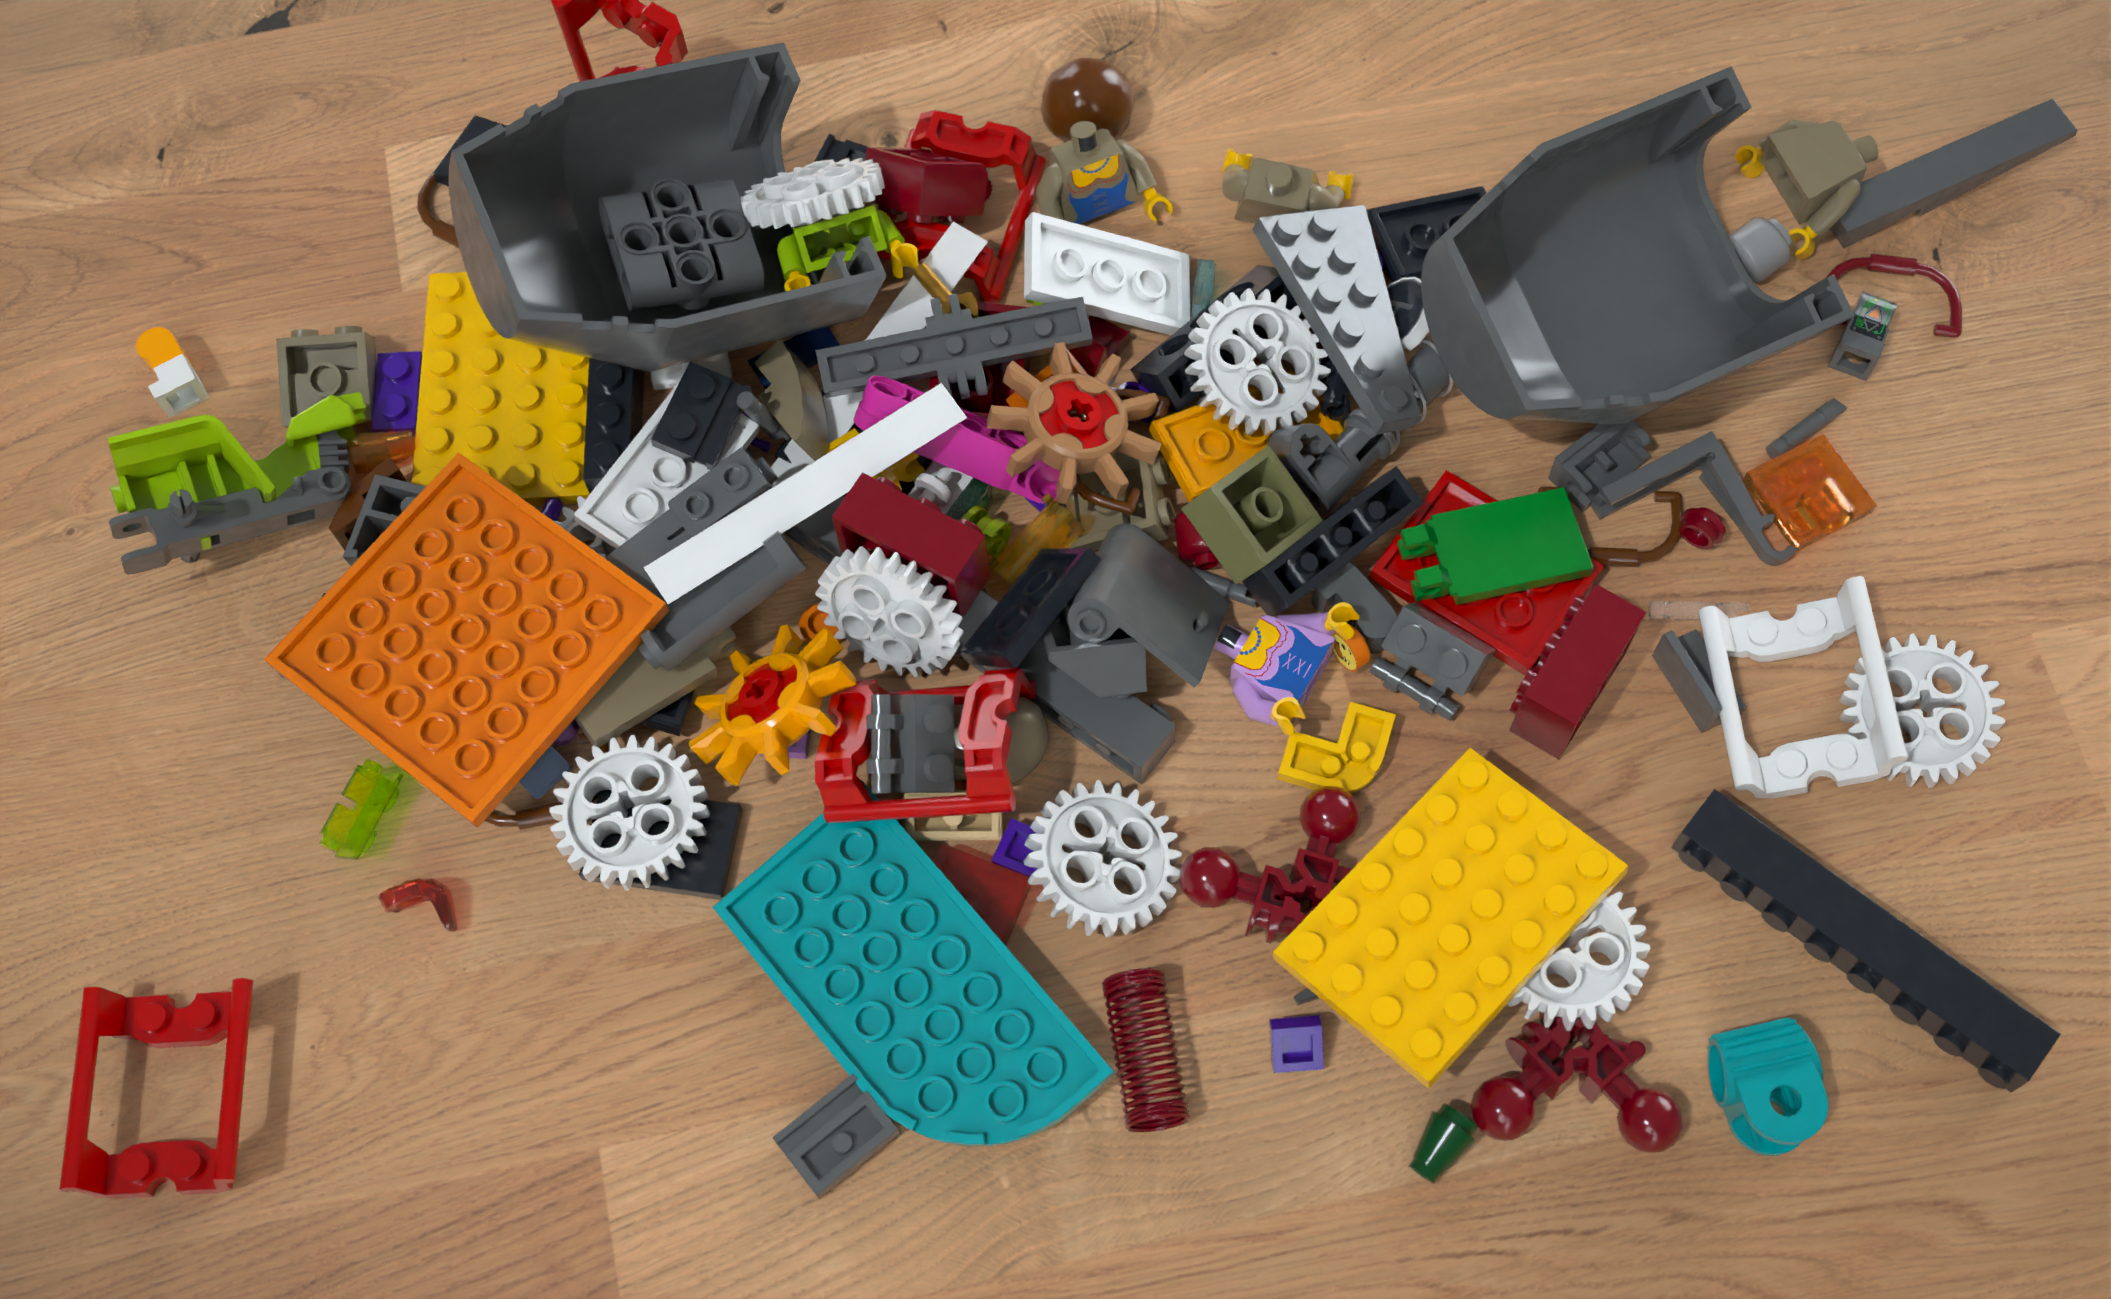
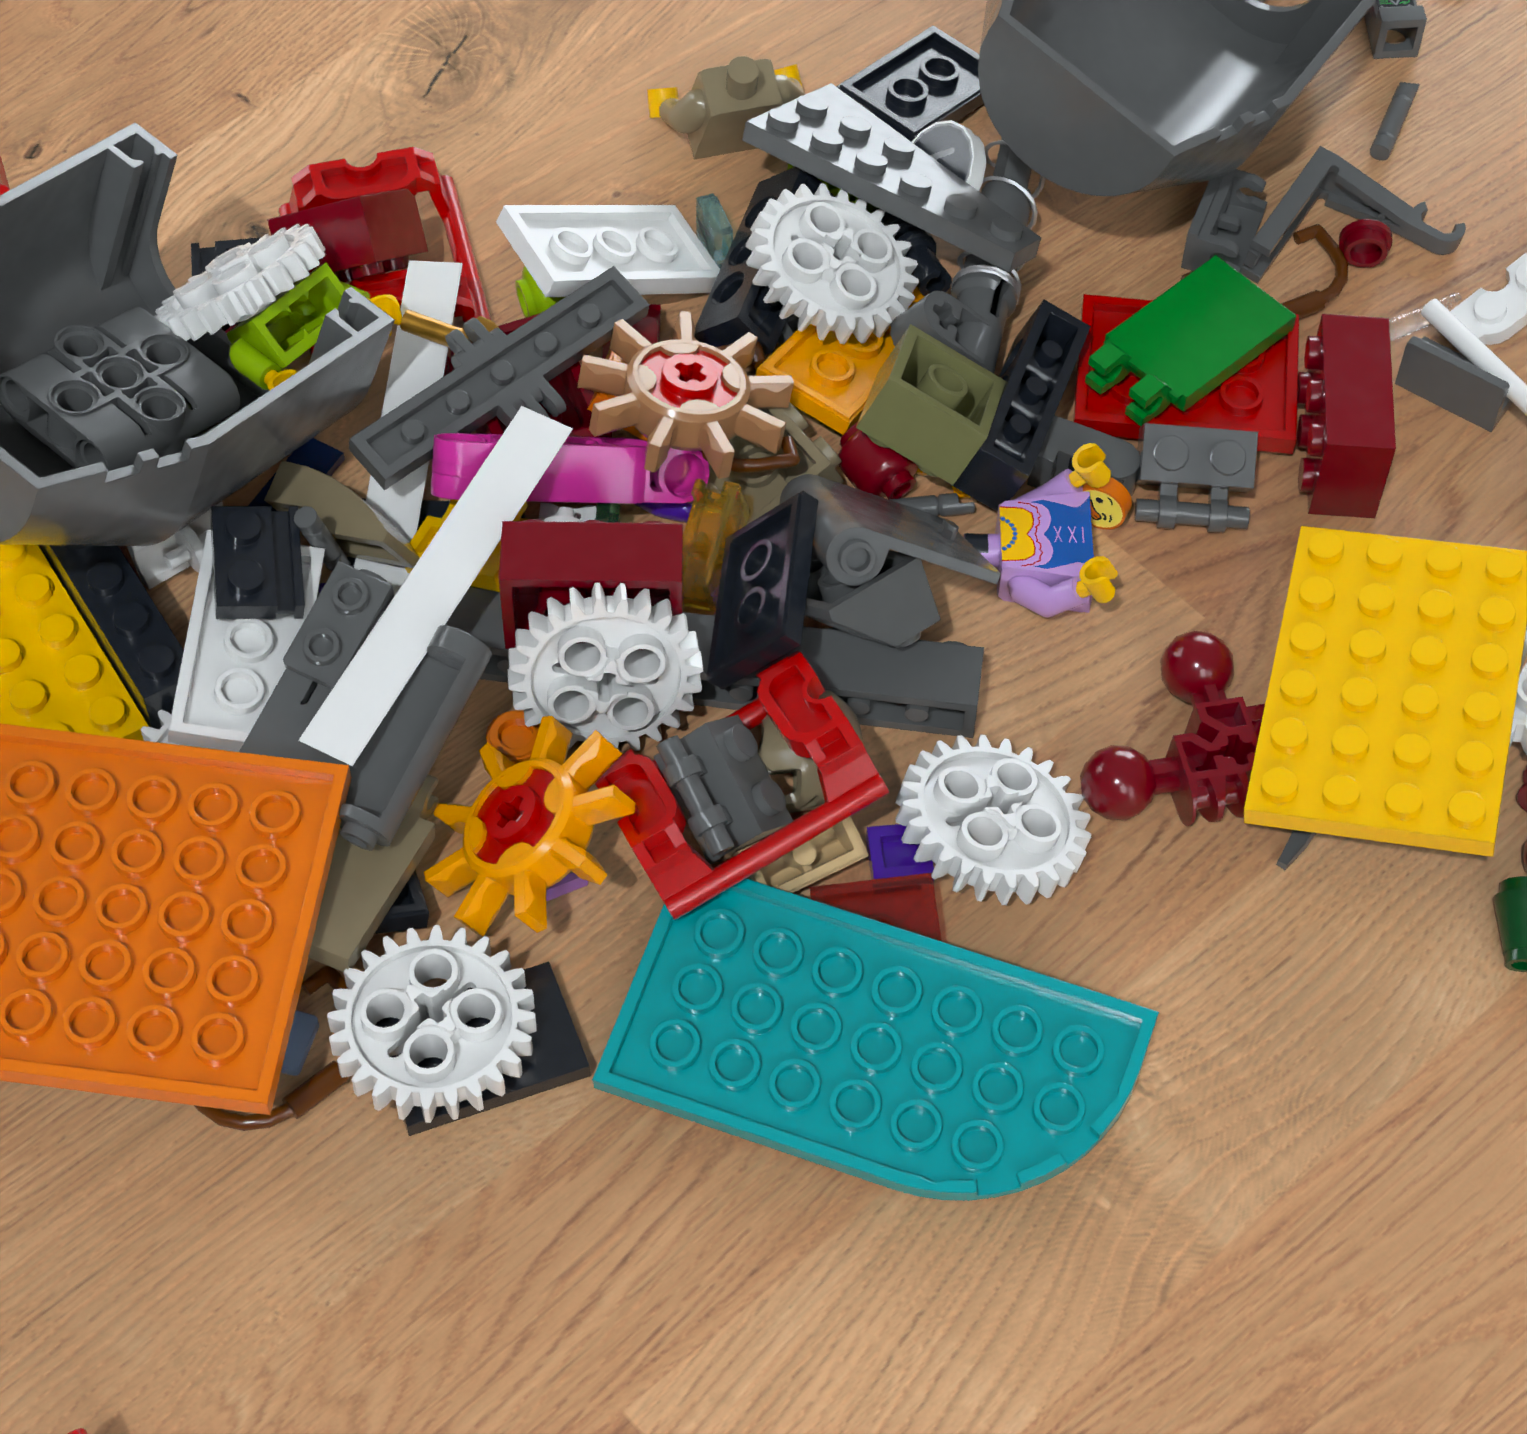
camera: 35 degrees left, 10 degrees down
(353, 831) = (94, 1211): clear neon green hinge -> none
(418, 891) = (226, 1237): clear red hair -> none
(835, 1136) = (893, 1247): dark grey plate -> none
(1087, 92) = (469, 101): reddish brown piece -> none
(1095, 177) = (530, 162): dark tan torso -> none
(1154, 1115) = (1226, 1040): dark red piece -> none
(1296, 1044) = (1316, 901): dark purple plate -> none
(1344, 764) = (1176, 604): yellow plate -> none
(1809, 492) = (1442, 168): clear orange plate -> none

